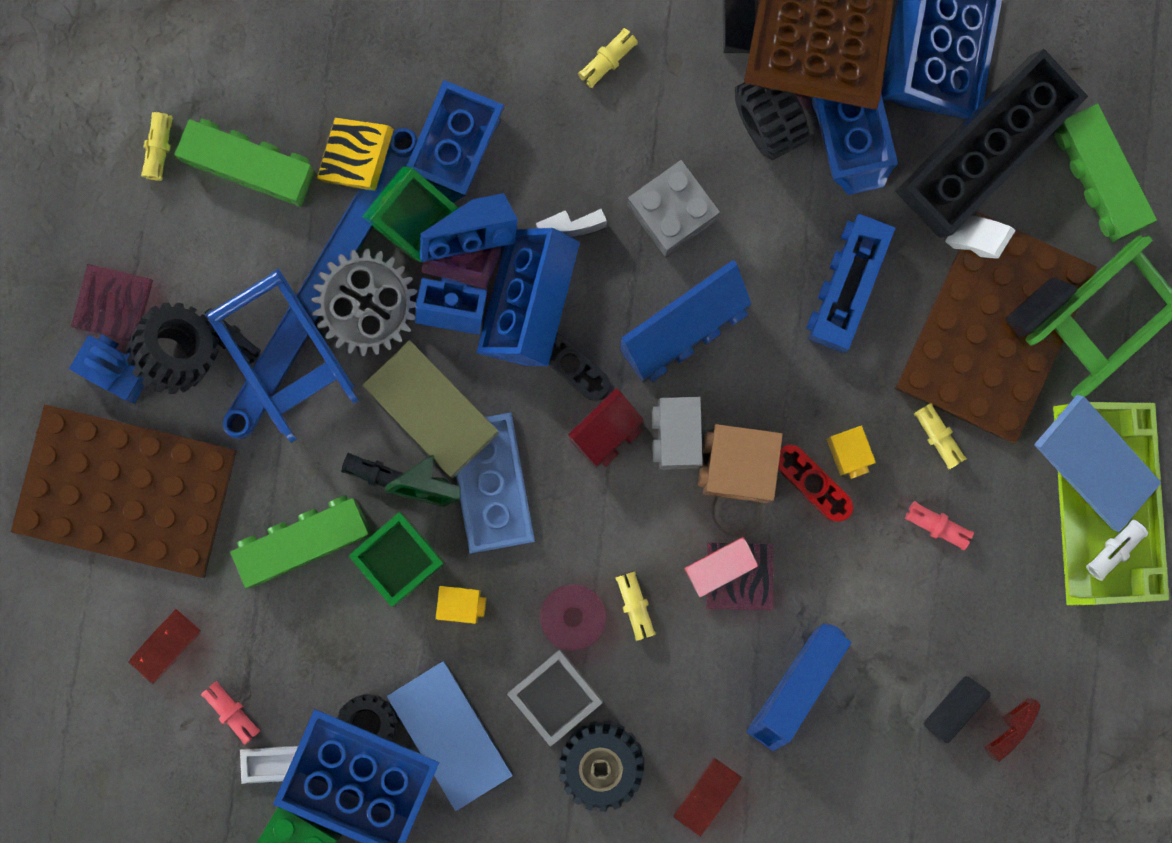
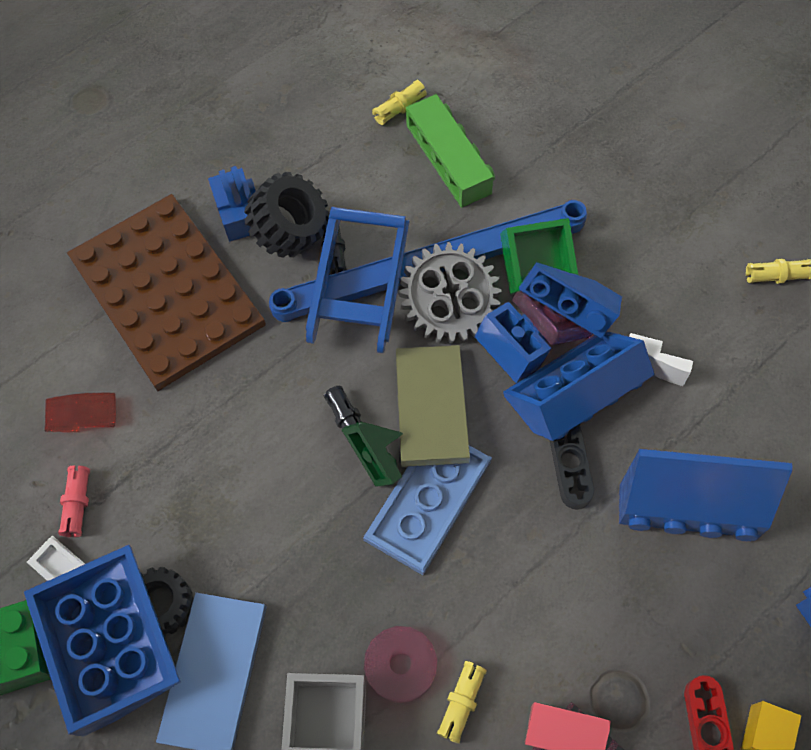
camera: 40 degrees right, 20 degrees down
(111, 302) = (276, 158): clear pink tile -> none
(301, 542) = (246, 419): bright green brick -> none
(355, 154) = (531, 196): yellow tile -> none
(397, 559) = (302, 490): green piece -> none
(455, 139) = (618, 236): blue slope -> none
(460, 604) = (318, 569): yellow brick -> none
(607, 429) = (560, 527): dark red slope -> none
(673, 208) = (754, 408): light grey piece -> none
(678, 433) = (625, 577): light grey piece -> none
(740, 463) = (658, 654): medium nougat brick -> none

